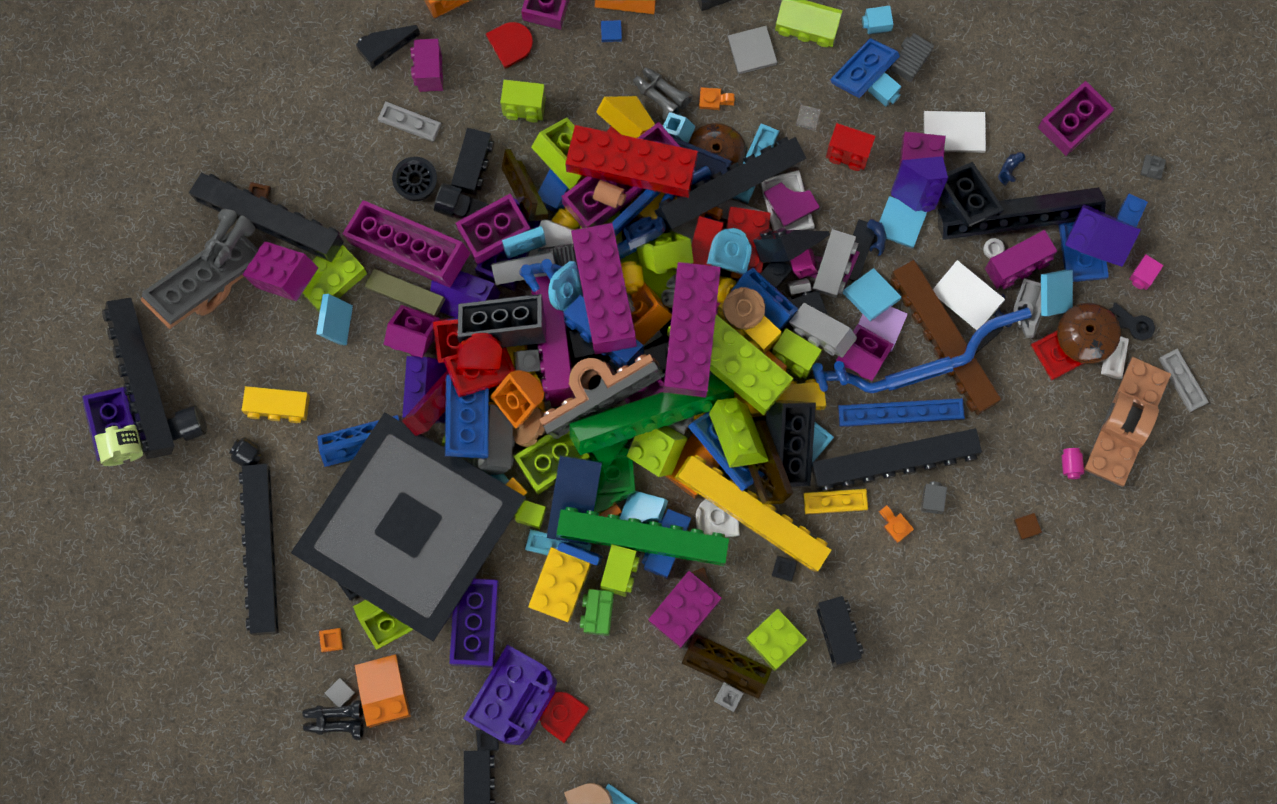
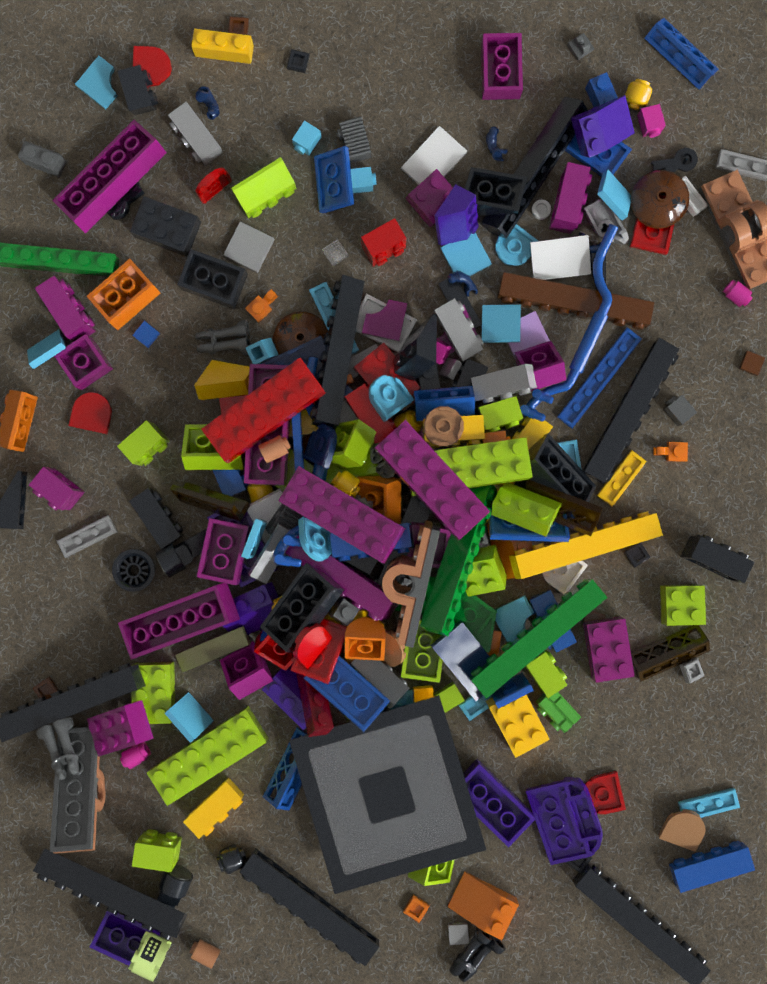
camera: 50 degrees left, 10 degrees up
(149, 497) = (204, 953): none -> nougat brick
(203, 385) = (157, 851): none -> lime brick
(265, 305) = (135, 755): none -> dark pink brick
(315, 362) = (207, 755): none -> lime brick
(700, 43) = (212, 279): none -> black brick
(943, 254) = (516, 248): none -> medium azure tile
(1157, 244) = (638, 94): none -> yellow head
(1220, 249) = (681, 53): none -> blue fence

